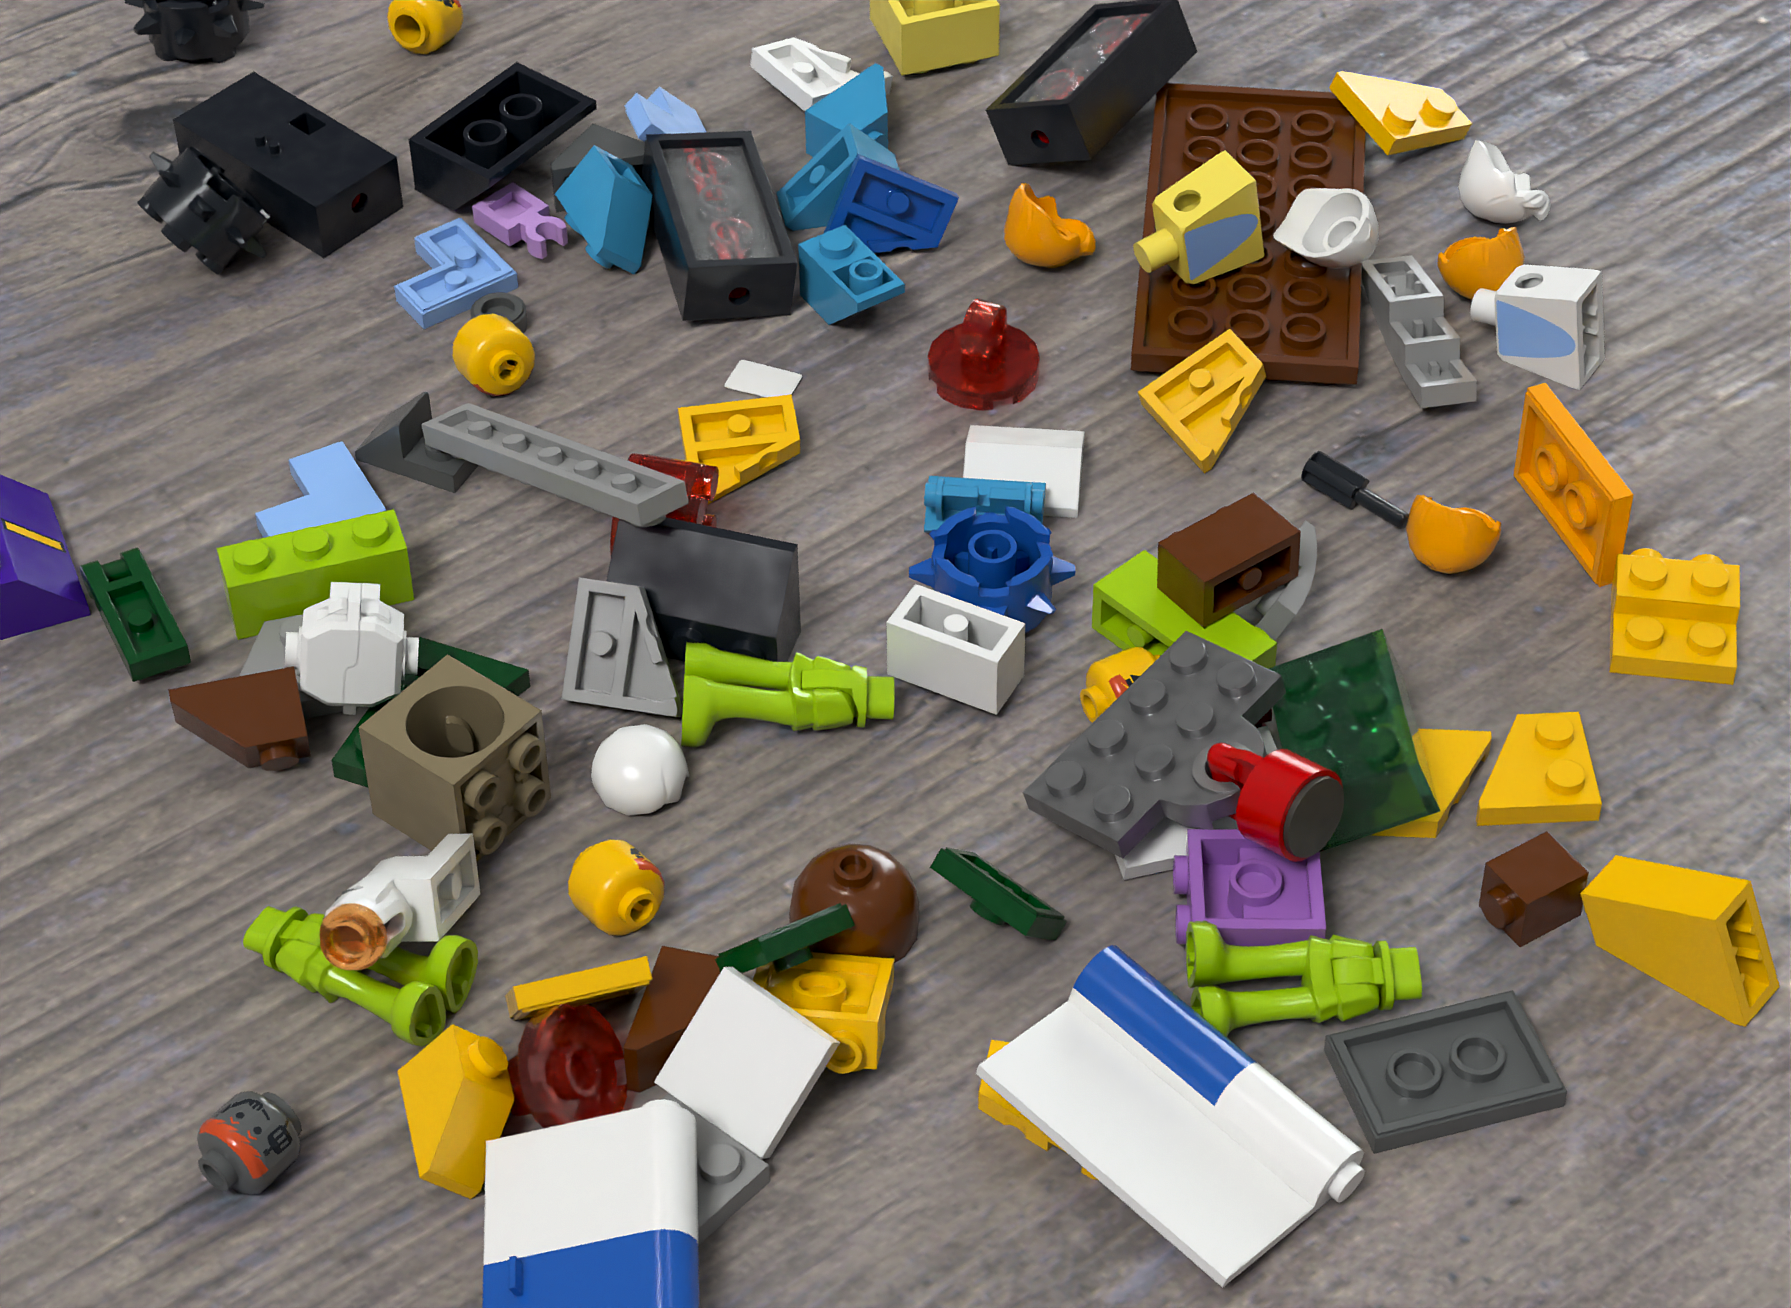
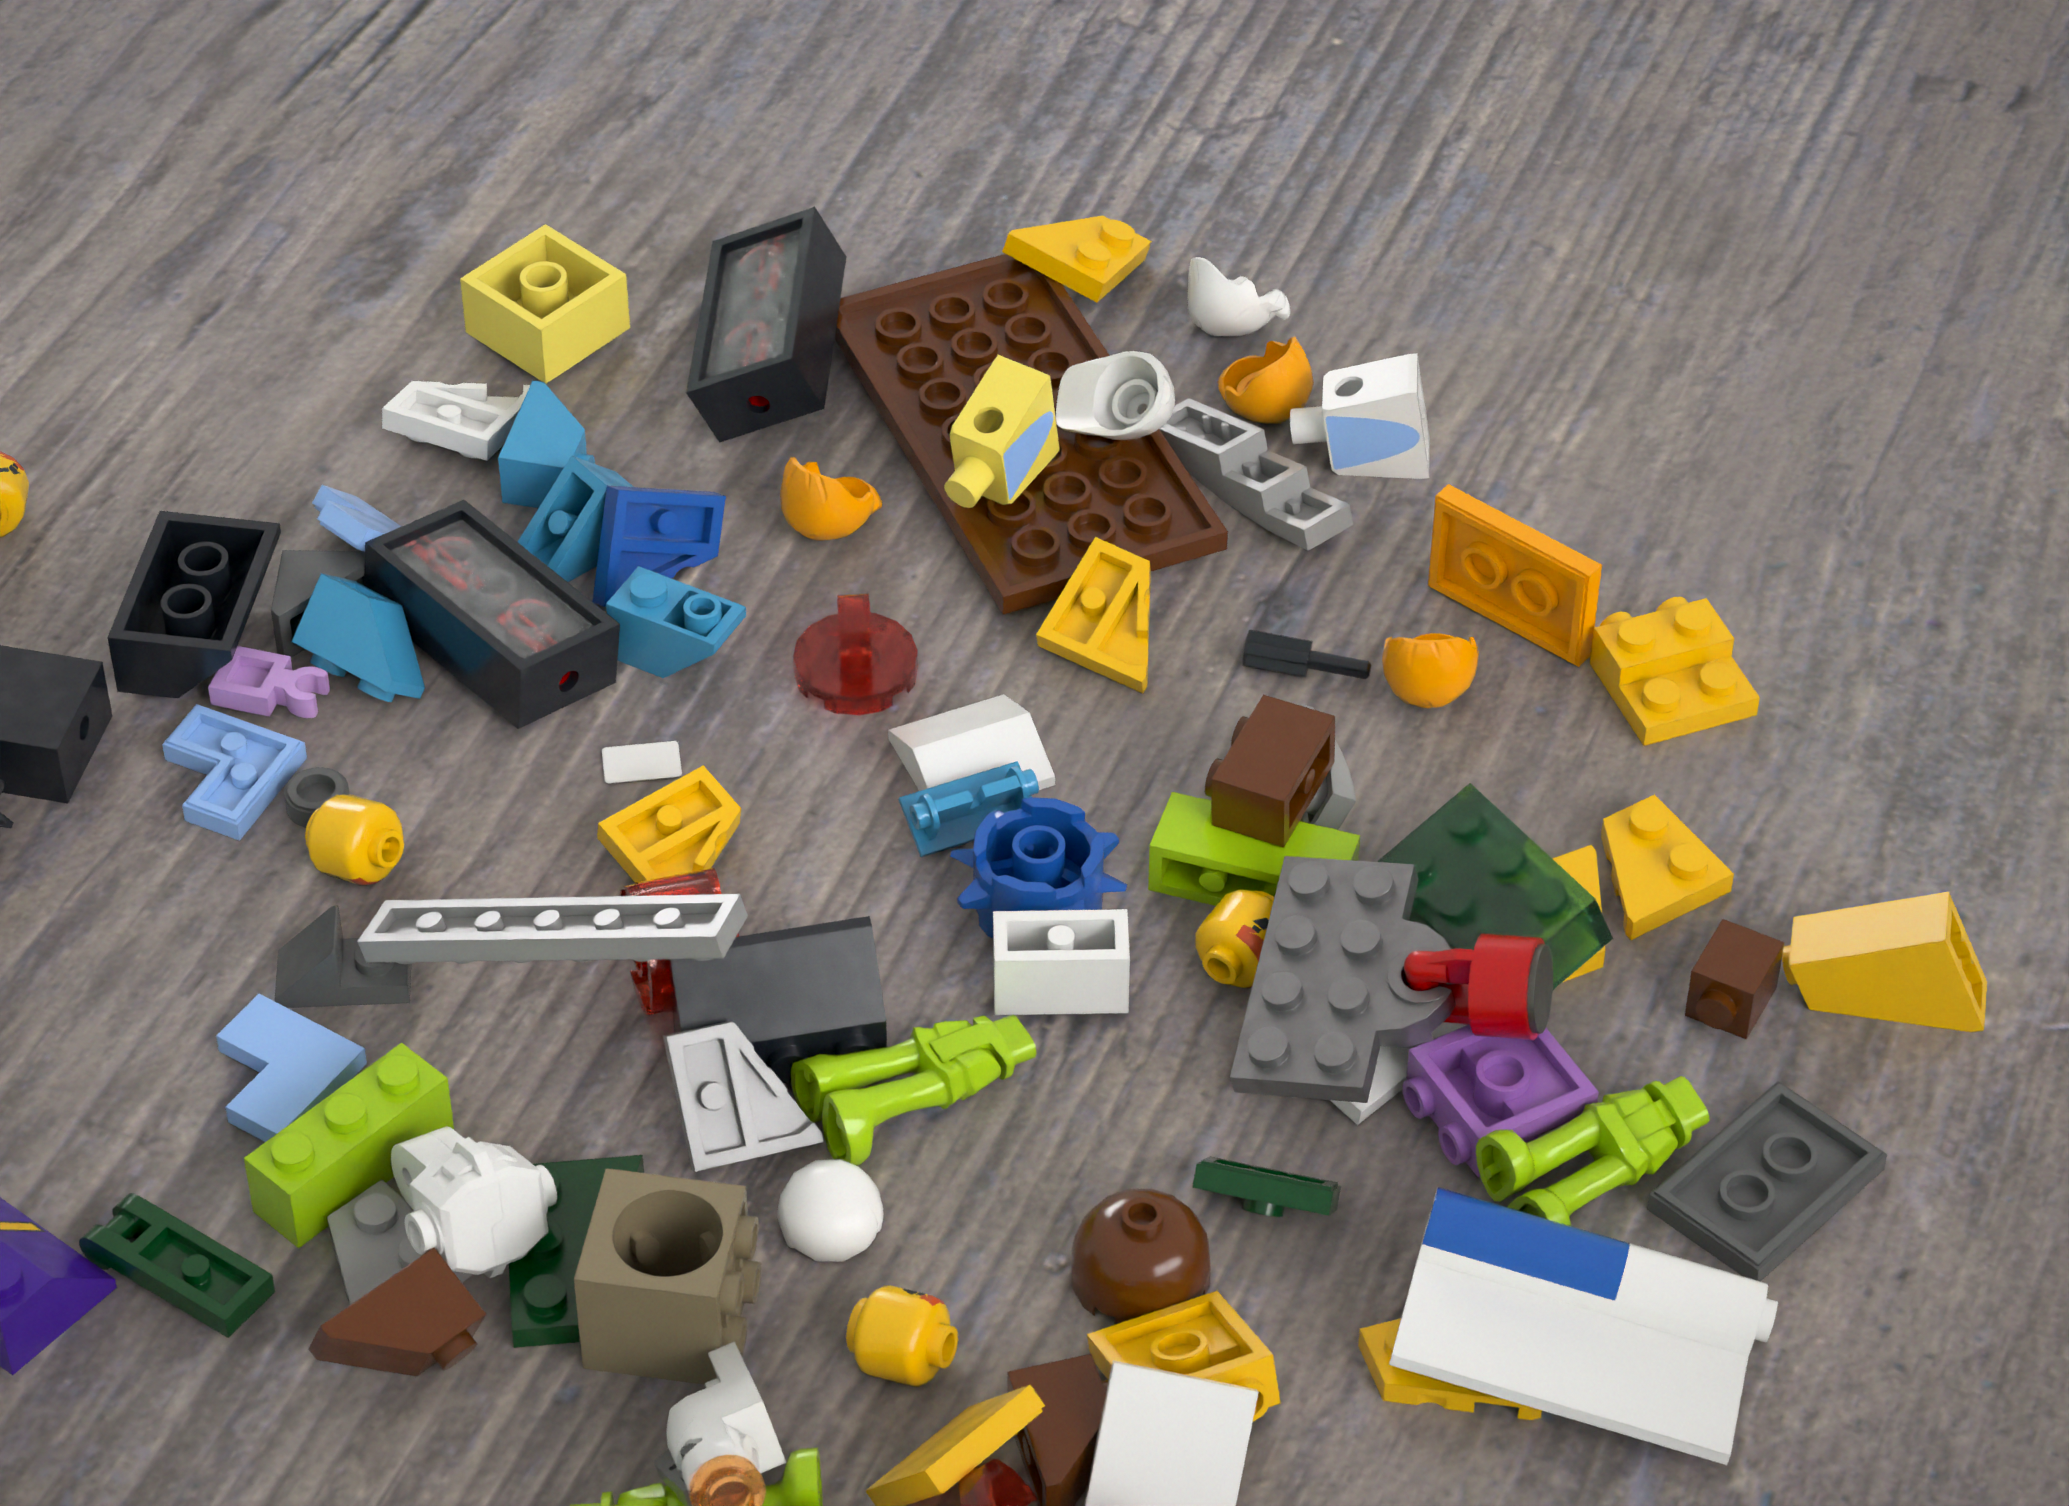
camera: 30 degrees left, 0 degrees up
(789, 943) = (1126, 1316): dark green plate -> none

